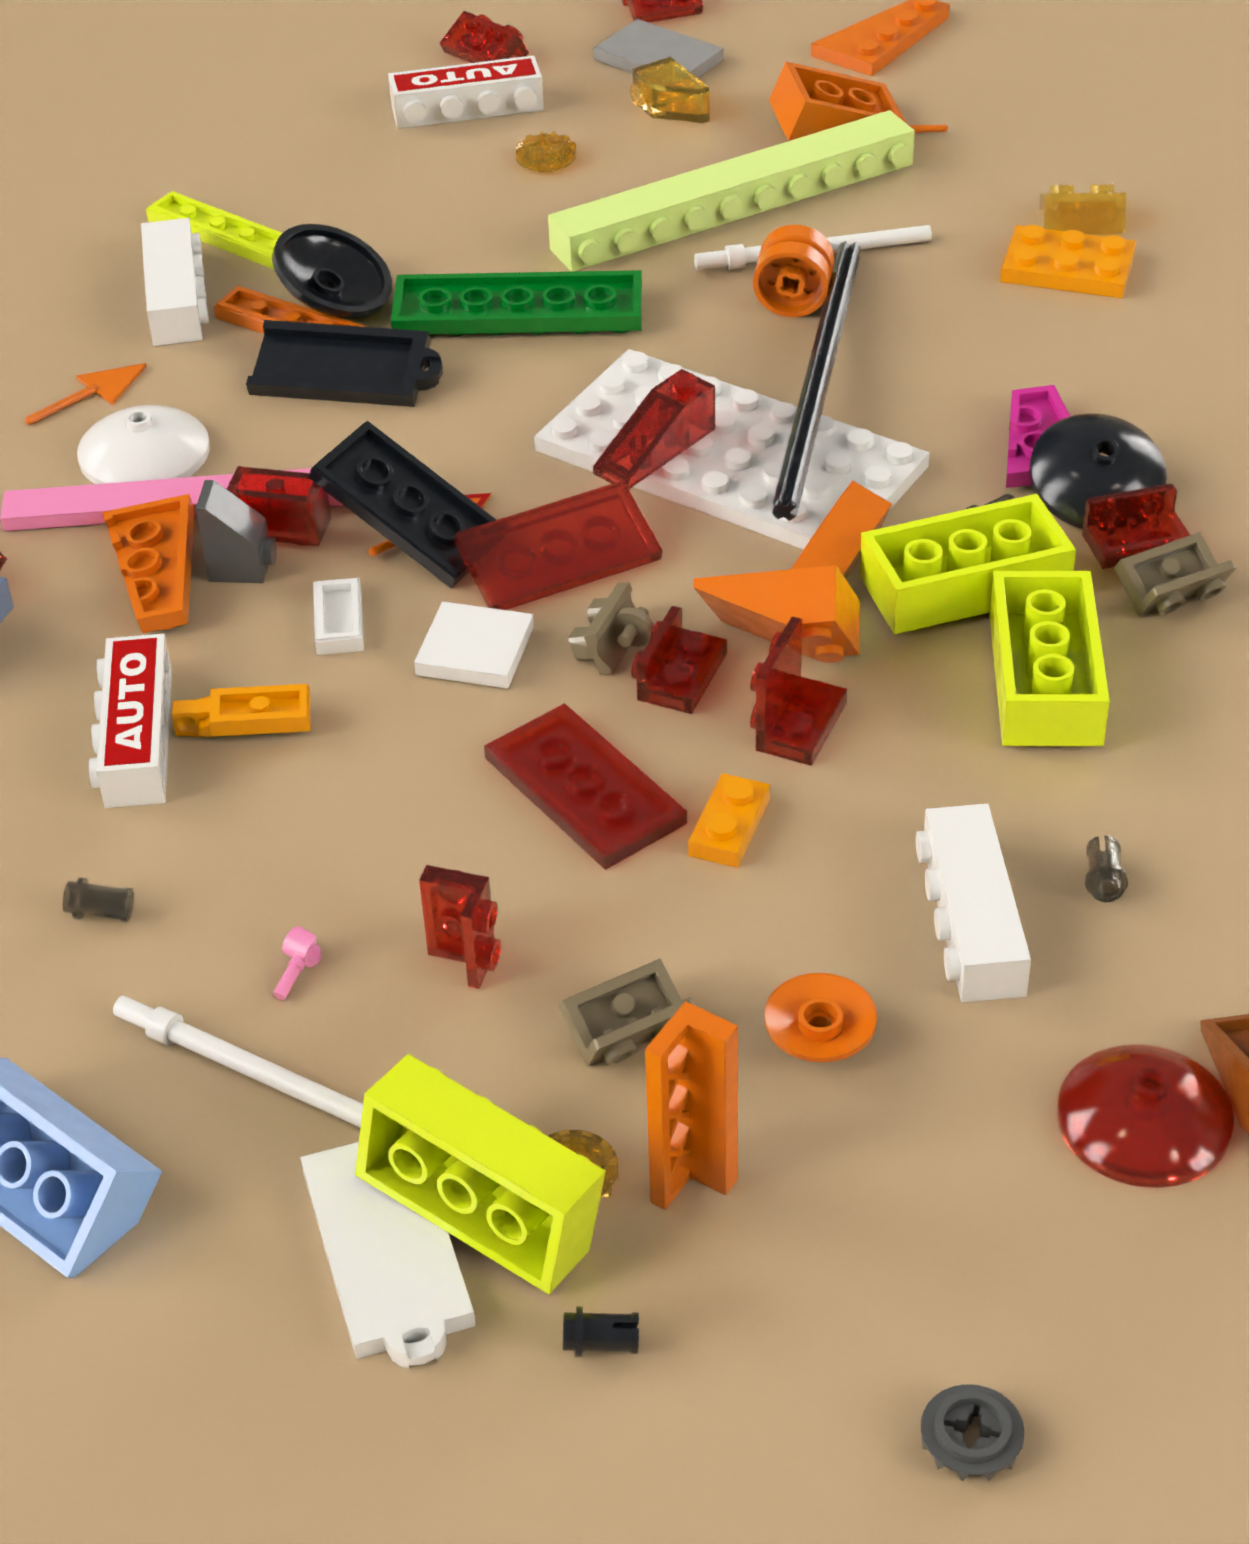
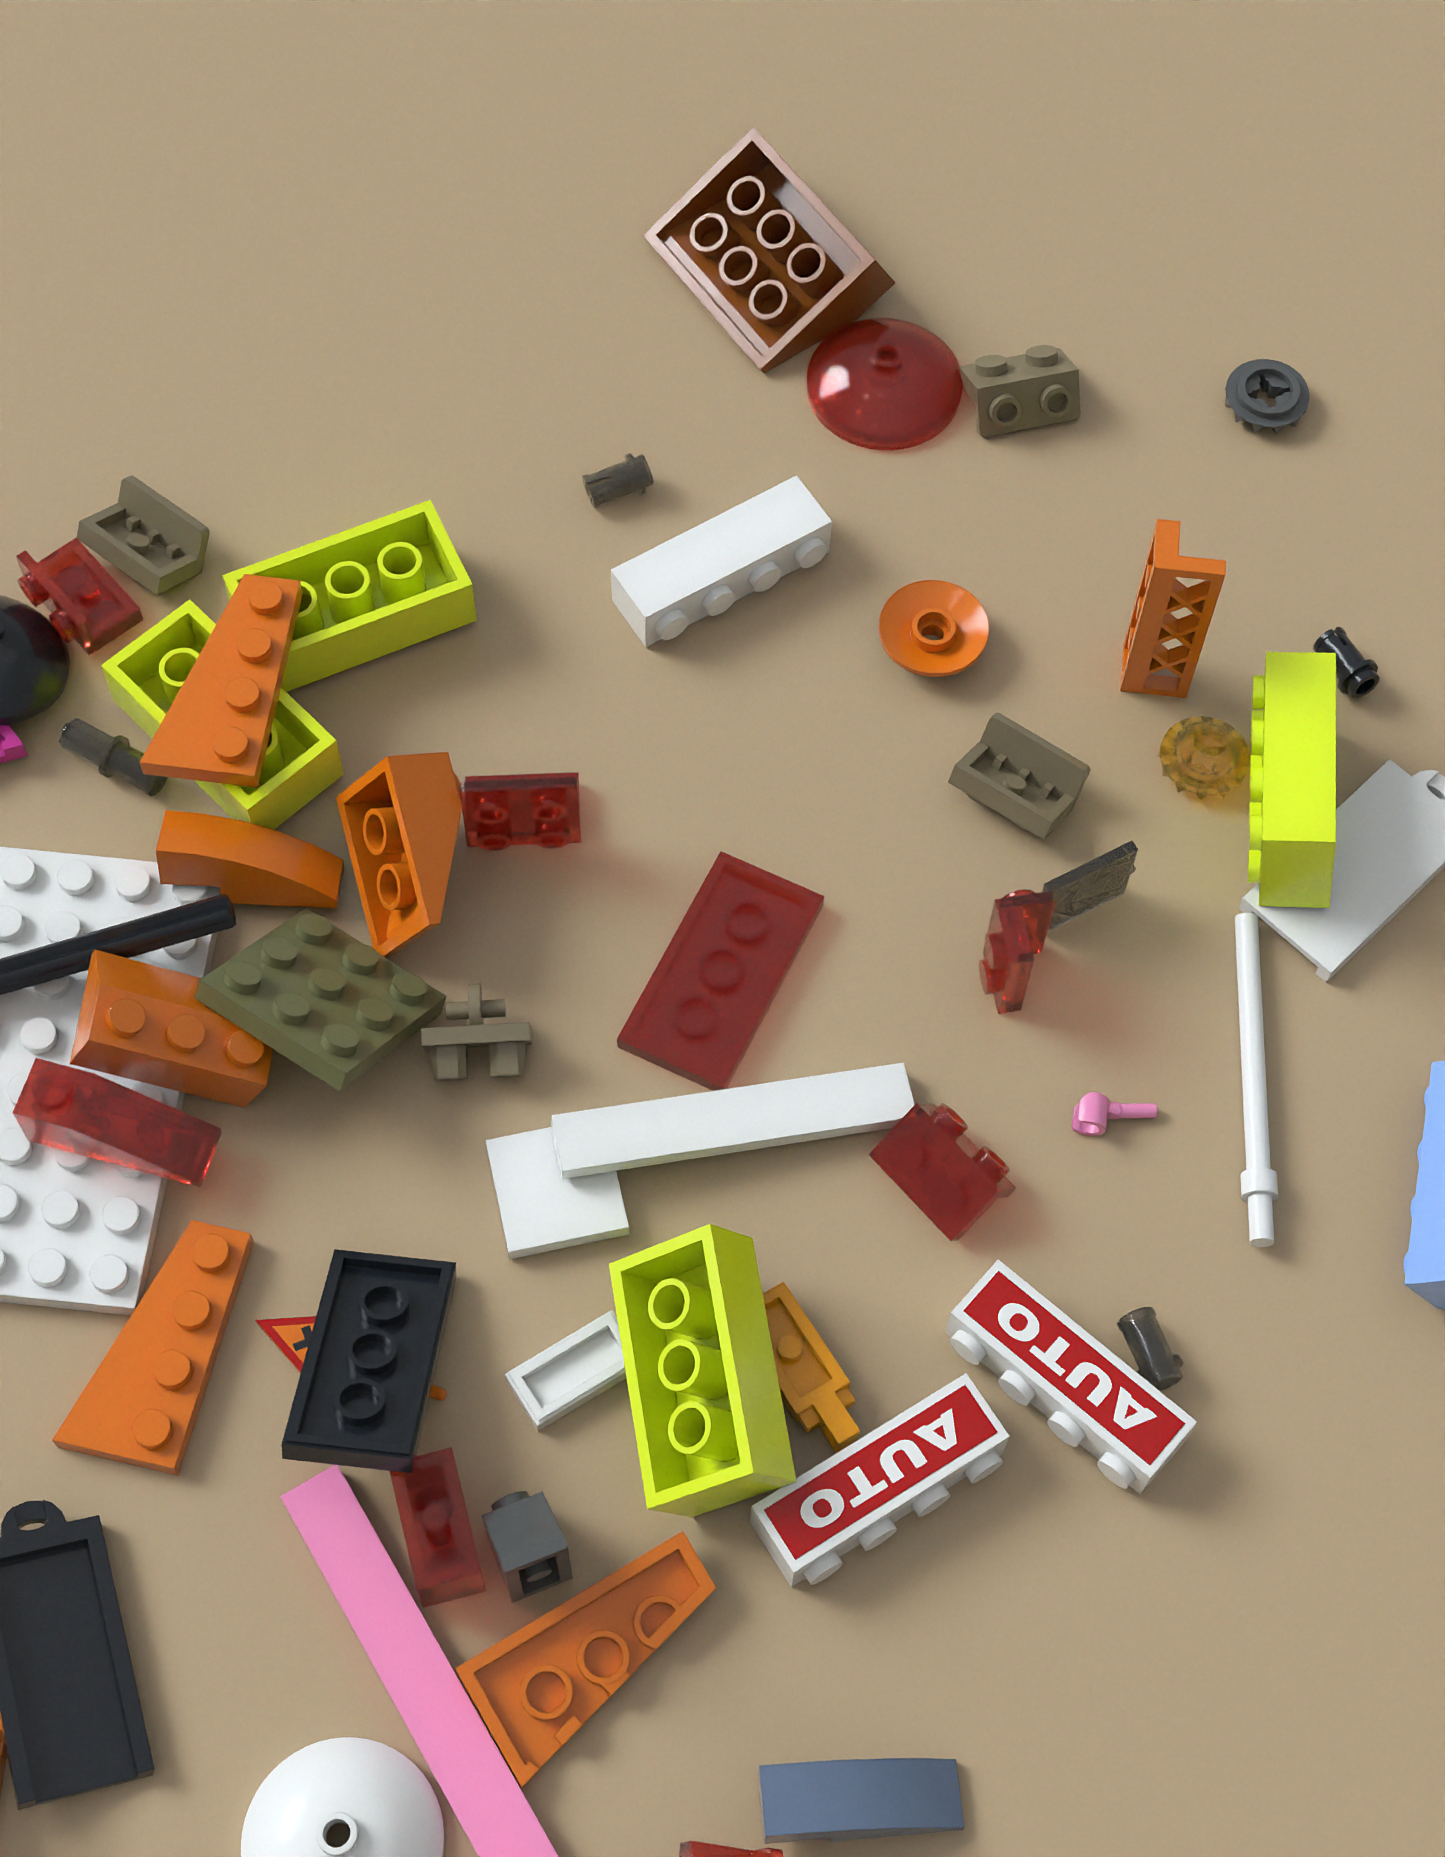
camera: 120 degrees left, 20 degrees up
(117, 840) = (1068, 1378): none -> brick
(269, 637) = (701, 1372): none -> neon yellow brick
(327, 844) = (942, 1168): none -> clear red bracket
(448, 743) = (730, 1120): none -> white tile
(486, 999) = (1091, 884): none -> clear smoke piece
(497, 447) = (159, 1366): none -> orange wing
(558, 546) = (355, 1168): clear red tile -> none
(676, 664) = (497, 953): clear red bracket -> none
(682, 533) = (321, 998): none -> olive plate
(712, 472) = (152, 1030): none -> orange slope
(729, 820) = (705, 815): light orange plate -> none
(971, 542) = (231, 694): none -> orange wing
(1080, 1207) = (1022, 390): none -> dark tan bracket

